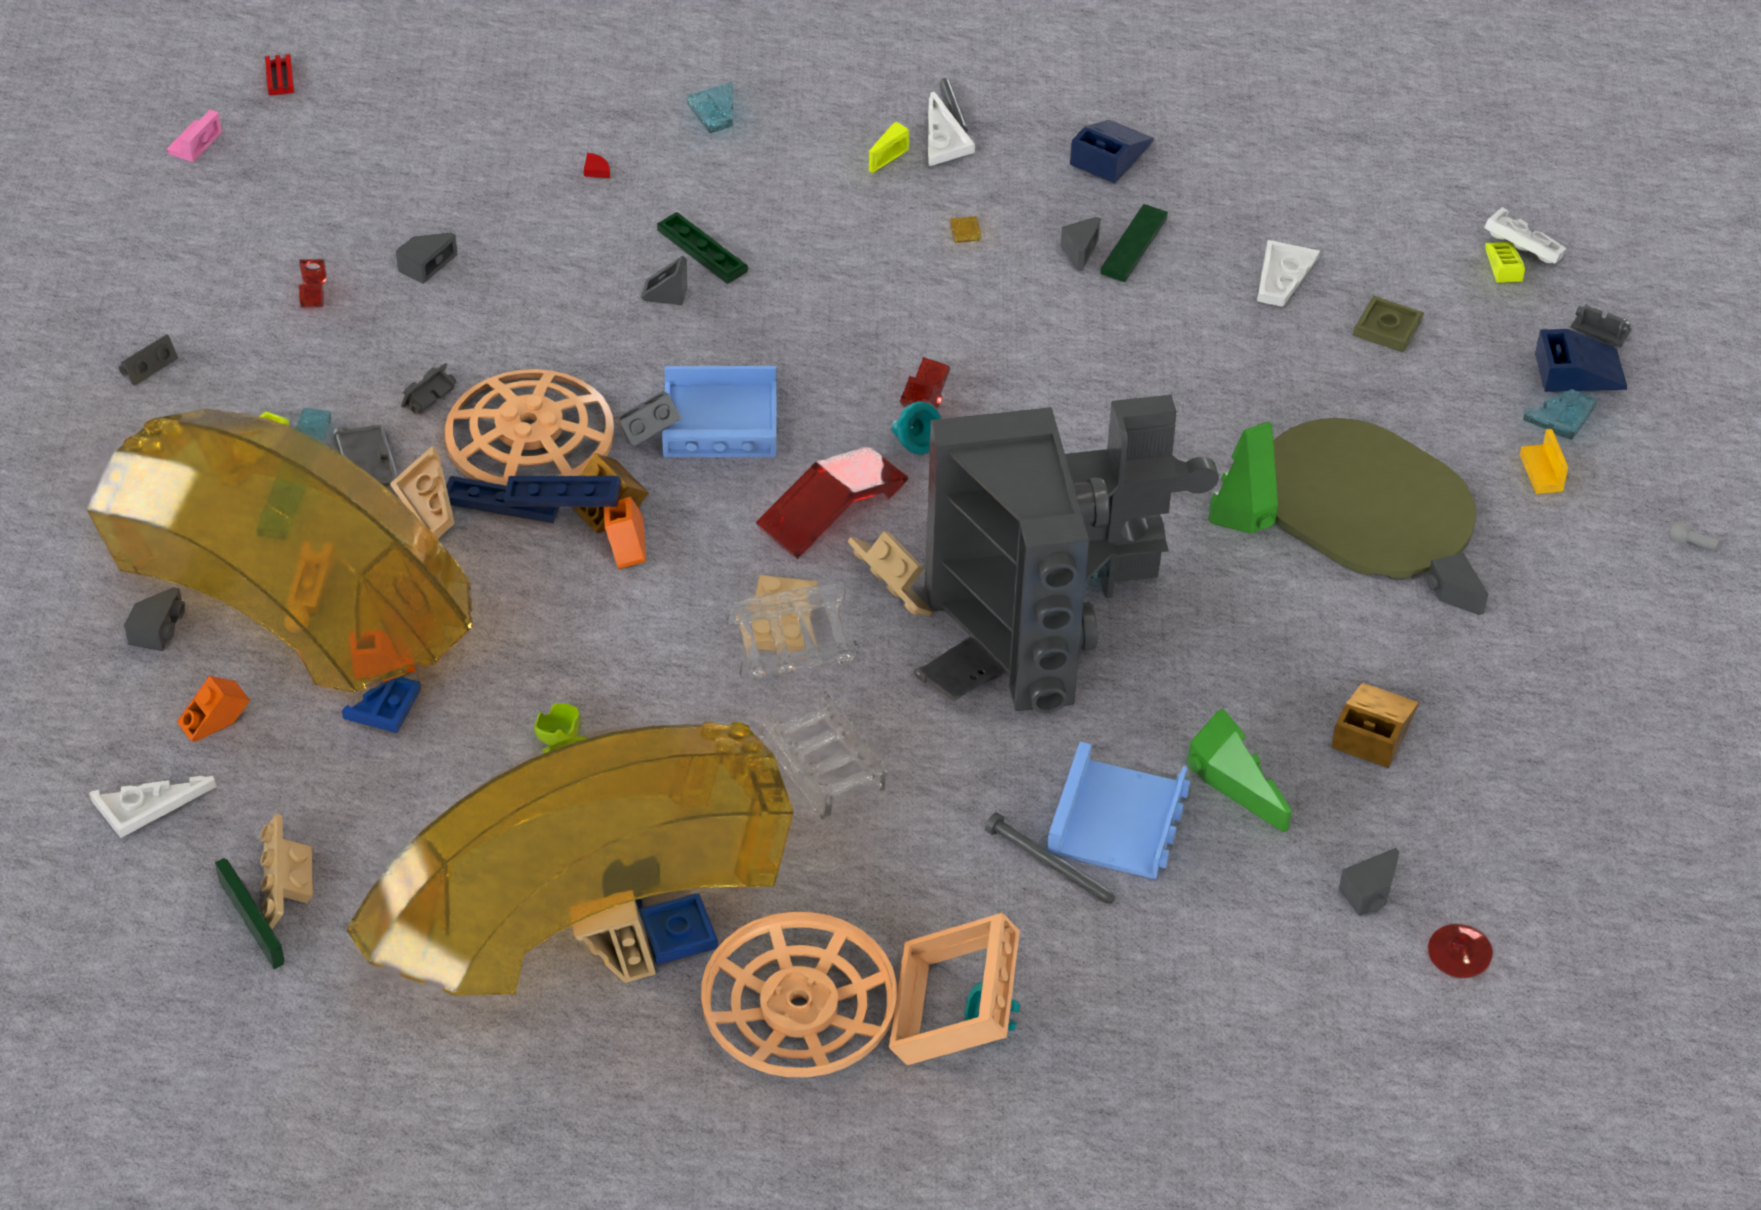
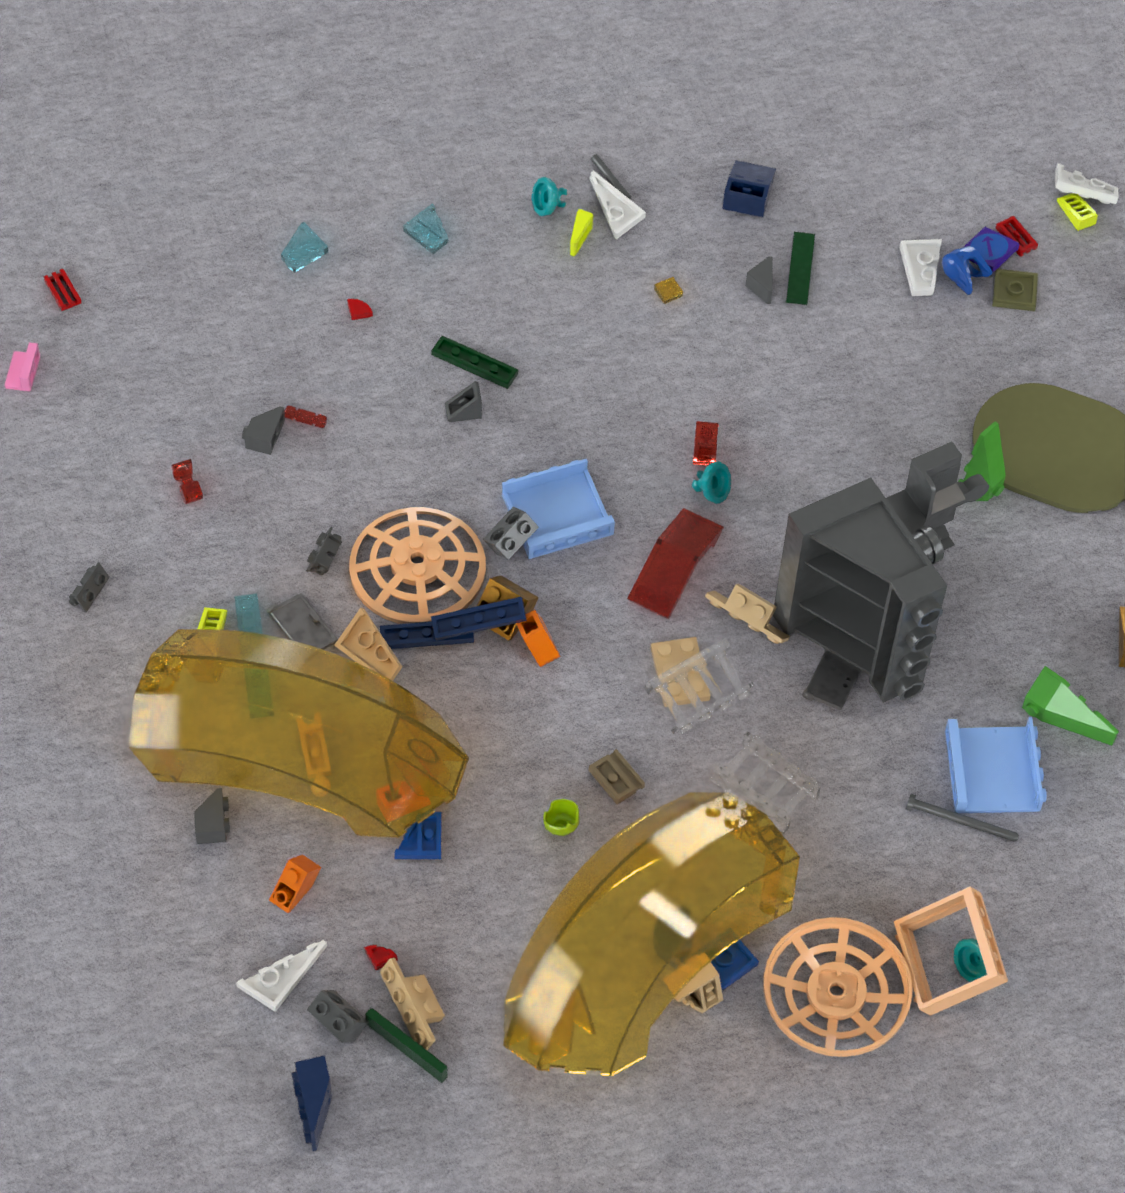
camera: 20 degrees left, 10 degrees up
(107, 933) = (313, 1096): none -> dark blue slope
(184, 857) = (337, 1016): none -> dark grey brick
(268, 809) = (379, 955): none -> red tile
(480, 254) = (305, 416): none -> clear red axle
(565, 95) = (303, 248): none -> clear light blue wing
(647, 700) = (616, 776): none -> dark tan plate
(867, 104) = (547, 196): none -> teal hair
(1327, 283) = (960, 270): none -> blue helmet
(1374, 274) = (993, 247): none -> tile
(1412, 266) = (1005, 229): none -> red tile

